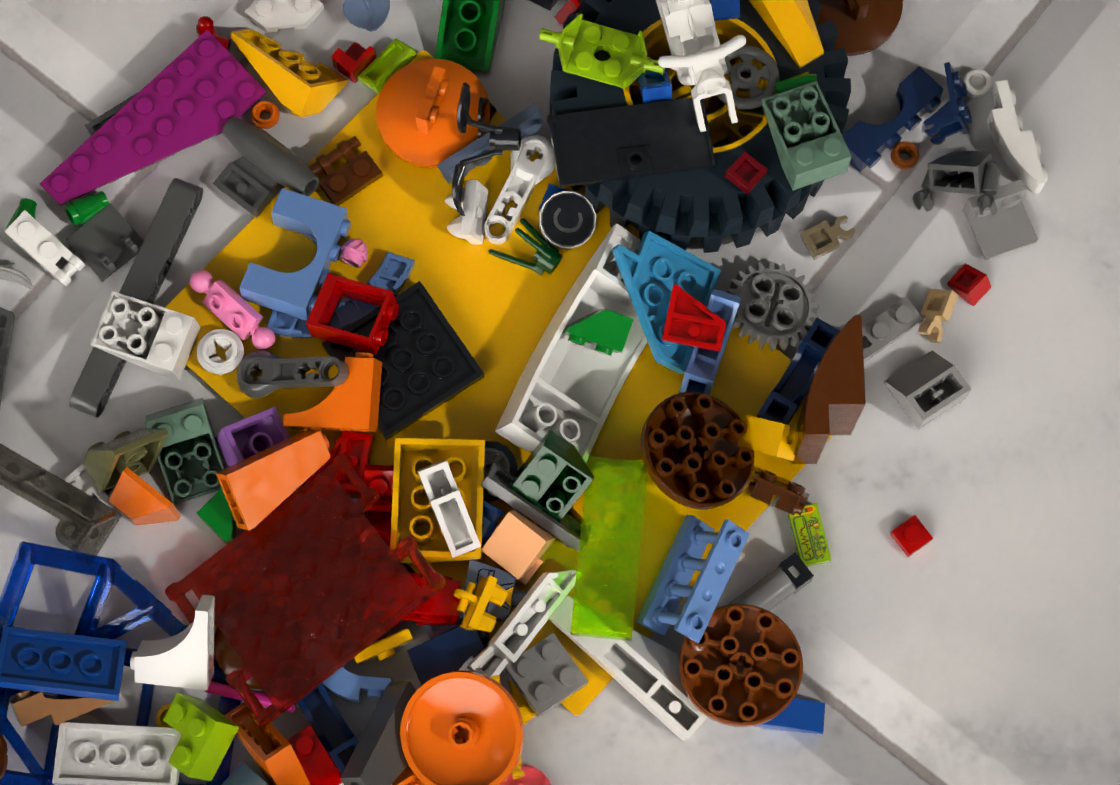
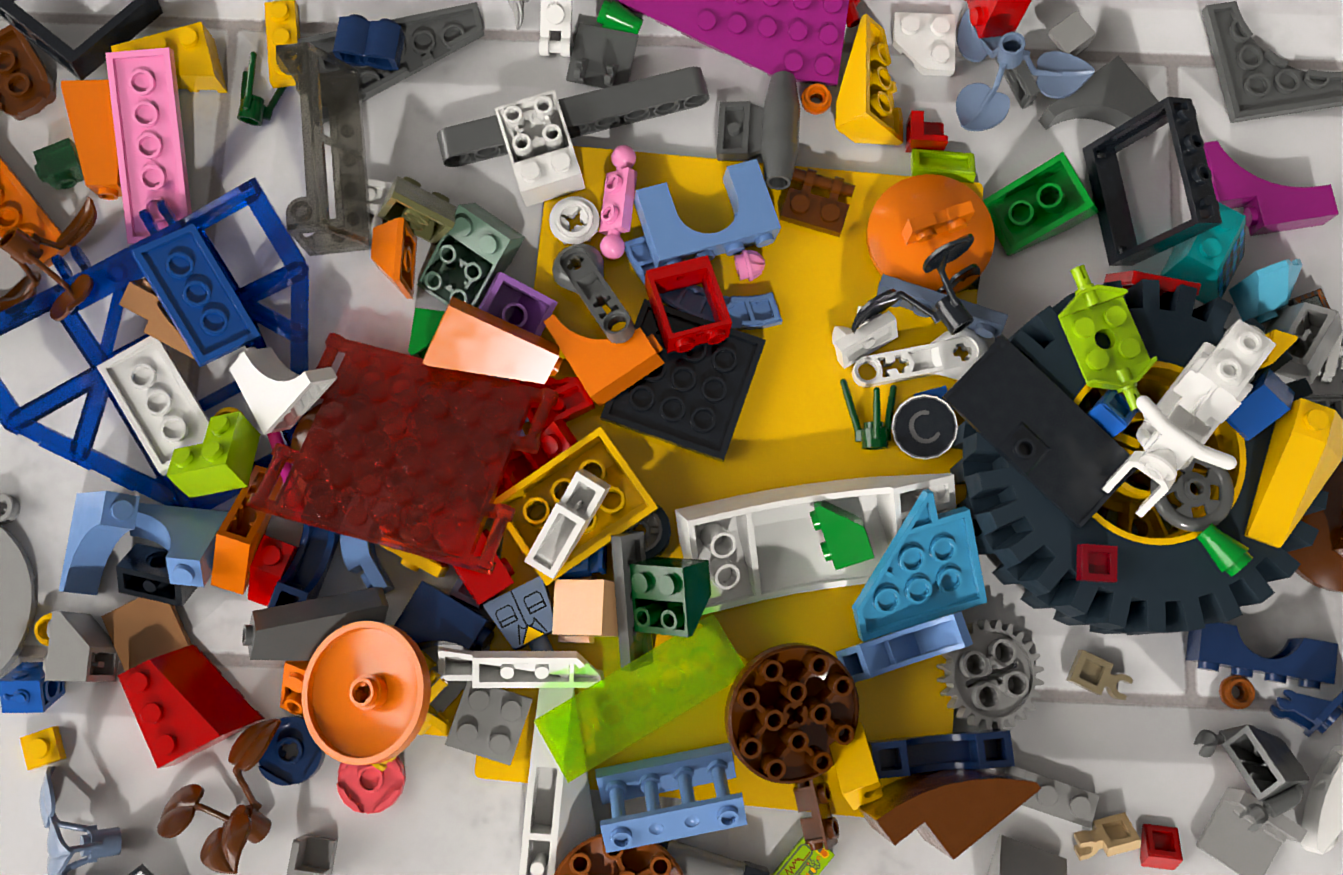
camera: 55 degrees right, 5 degrees up
(485, 592) = (487, 621): yellow hips -> none
(692, 323) = (912, 616): red wing -> none
(806, 136) = (1182, 594): sand green slope -> none

